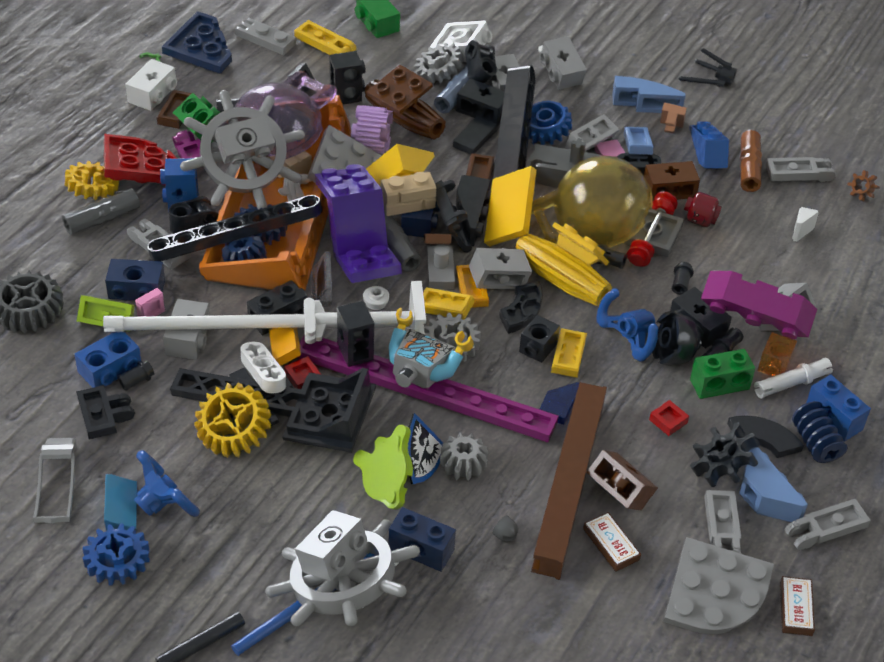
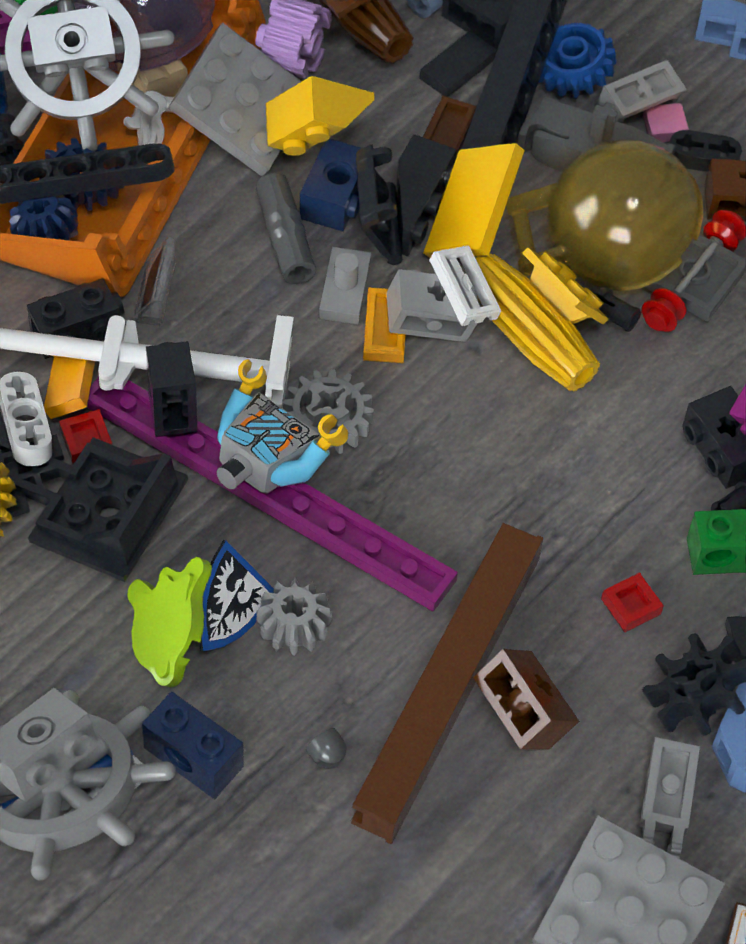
camera: 10 degrees right, 10 degrees up
(357, 223) = (225, 199): dark purple bracket -> none
(376, 297) = (231, 331): white plate -> none
(408, 193) = (315, 159): tan brick -> none
(437, 238) = (346, 240): reddish brown tile -> none
(445, 302) = (334, 349): yellow plate -> none
(517, 252) = (459, 285): none -> white tile
(523, 308) = (457, 375): black tile -> none
(539, 338) = (464, 420): black brick -> none
(560, 401) = (467, 546): clear blue tile -> none
(569, 353) = (505, 465): yellow plate -> none
(612, 541) = (487, 796): tile -> none
(632, 325) = (617, 435): blue piece -> none
(638, 140) = (714, 111): medium blue tile -> none
(677, 339) = (677, 471): black cylinder -> none
(683, 273) = (723, 355): black pin -> none

